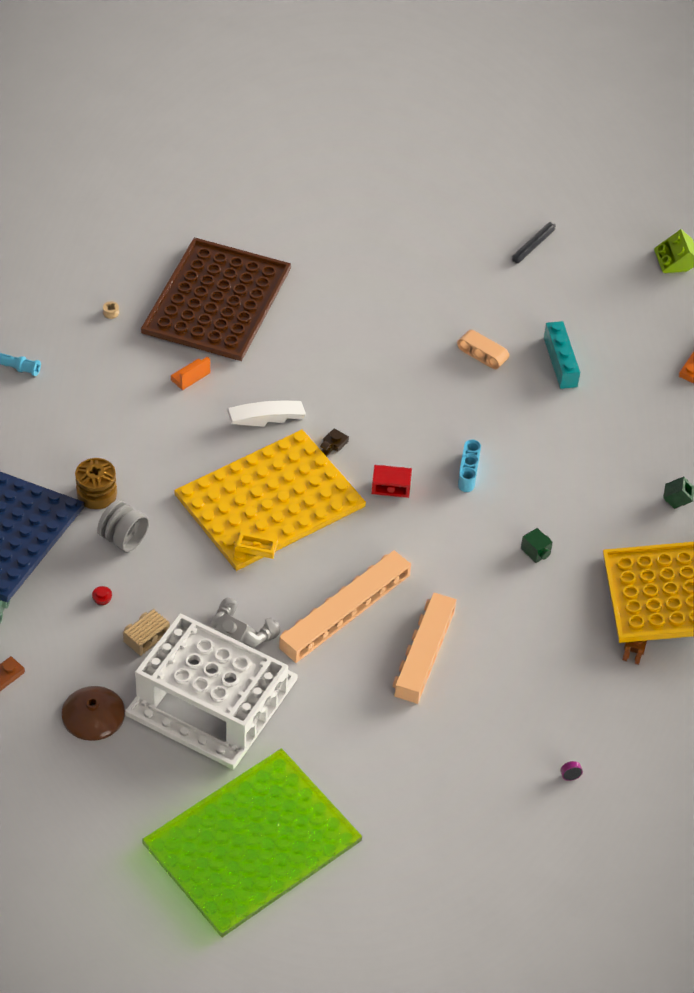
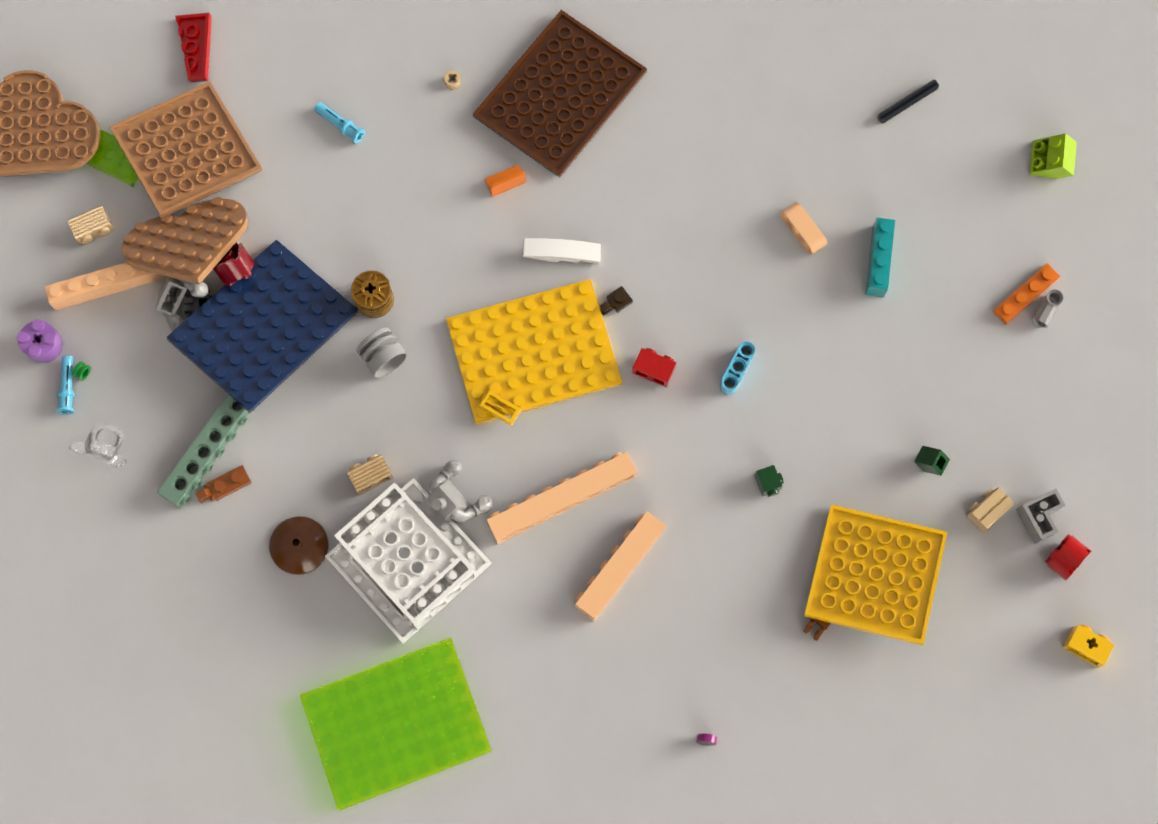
camera: 20 degrees right, 25 degrees up
(102, 595) = (343, 419): red plate -> none

